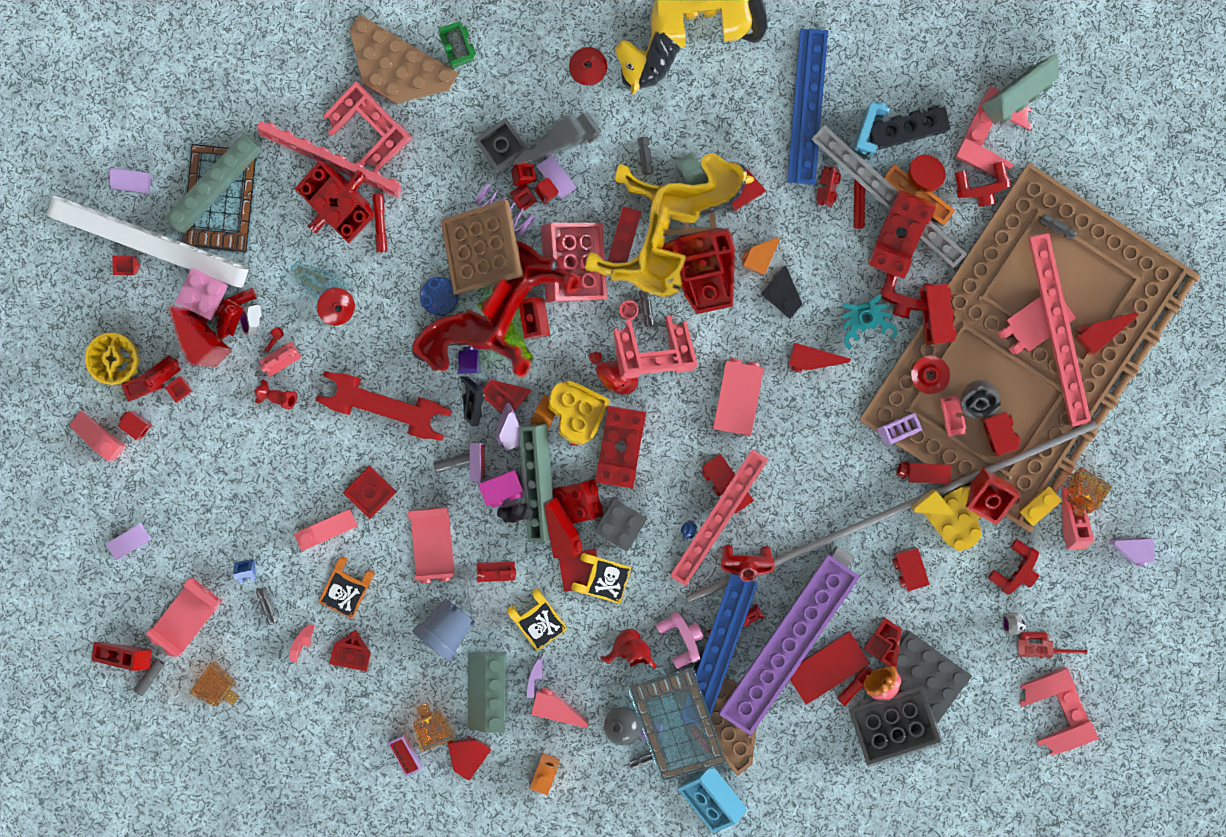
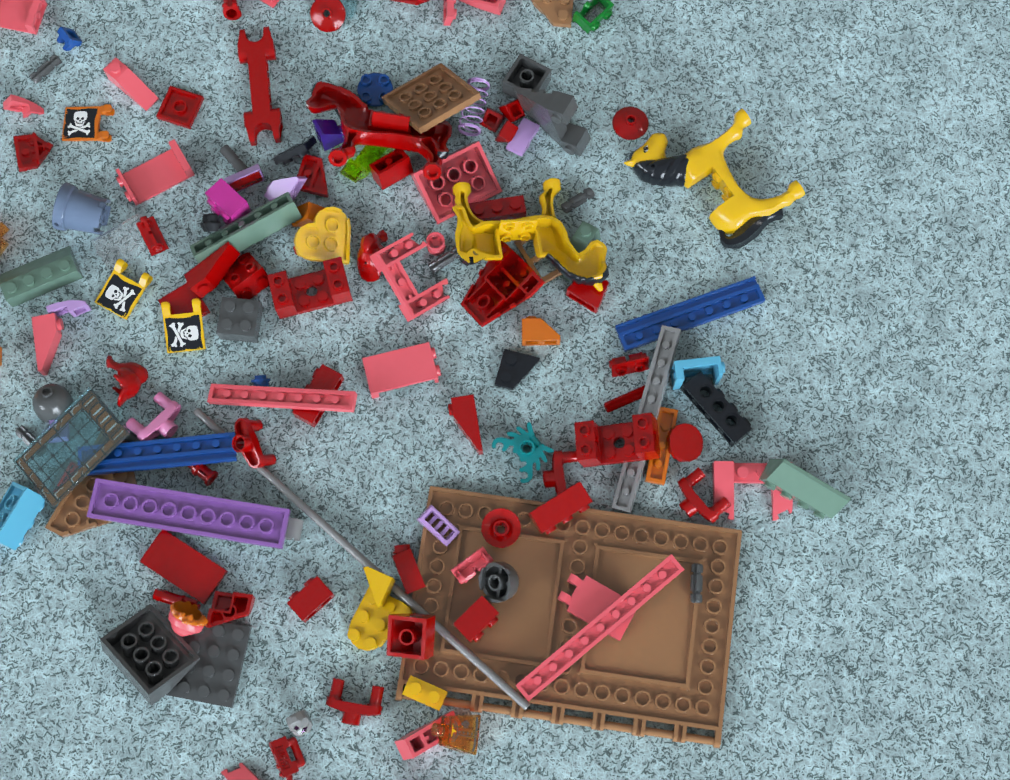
camera: 70 degrees right, 15 degrees down
(379, 209) = (404, 24): red piece -> none
(1098, 334) = (616, 669): red slope -> none

